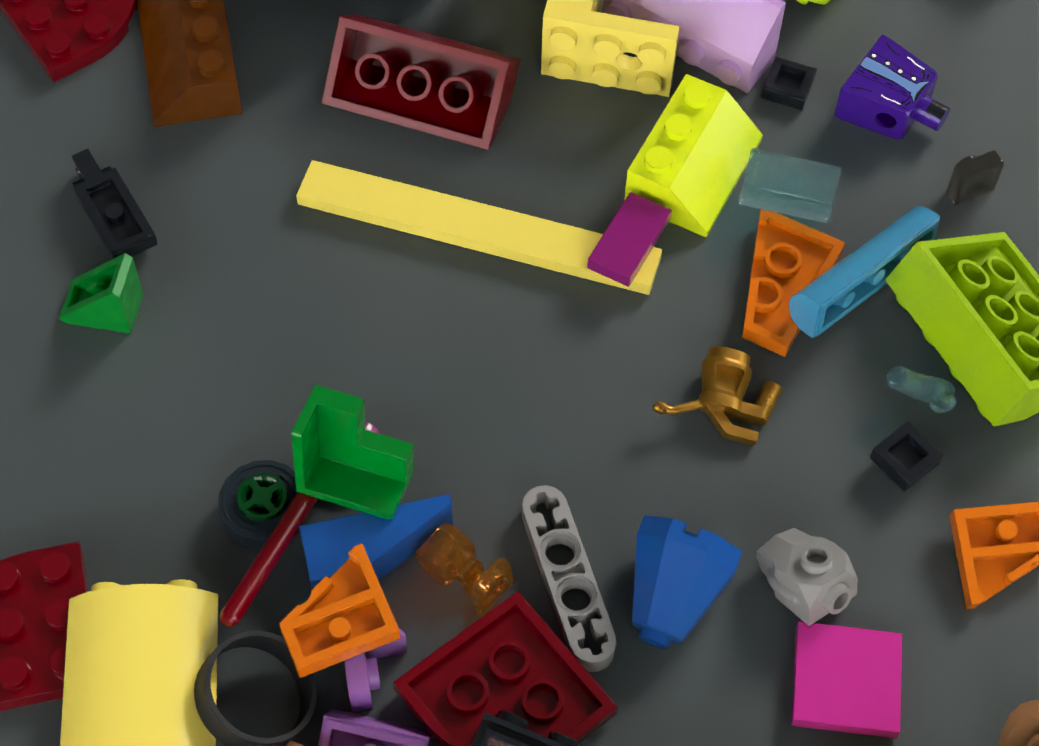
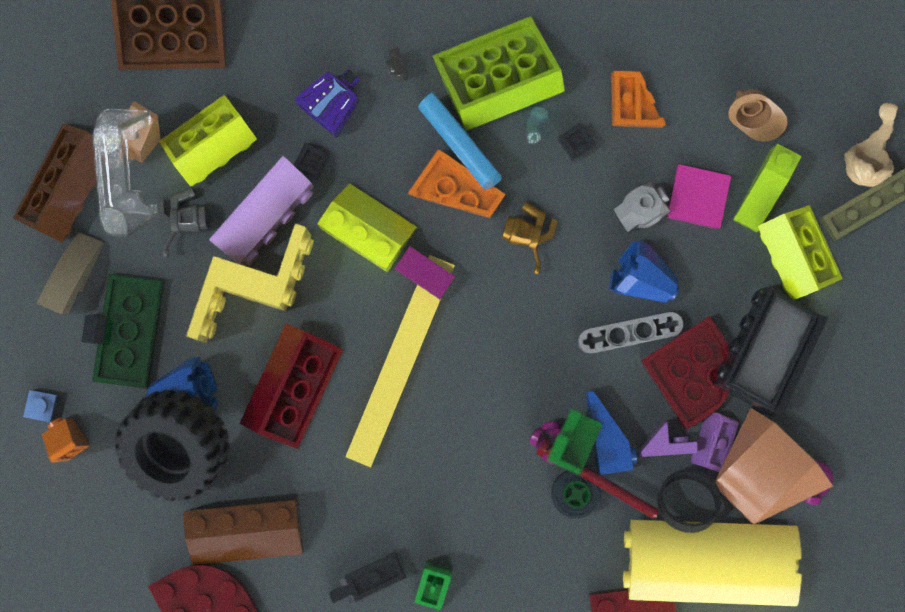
camera: 85 degrees left, 25 degrees up
(340, 617) = (661, 454): orange wing -> none
(452, 556) = (617, 393): clear orange leg -> none
(790, 185) = (397, 175): clear light blue panel -> none

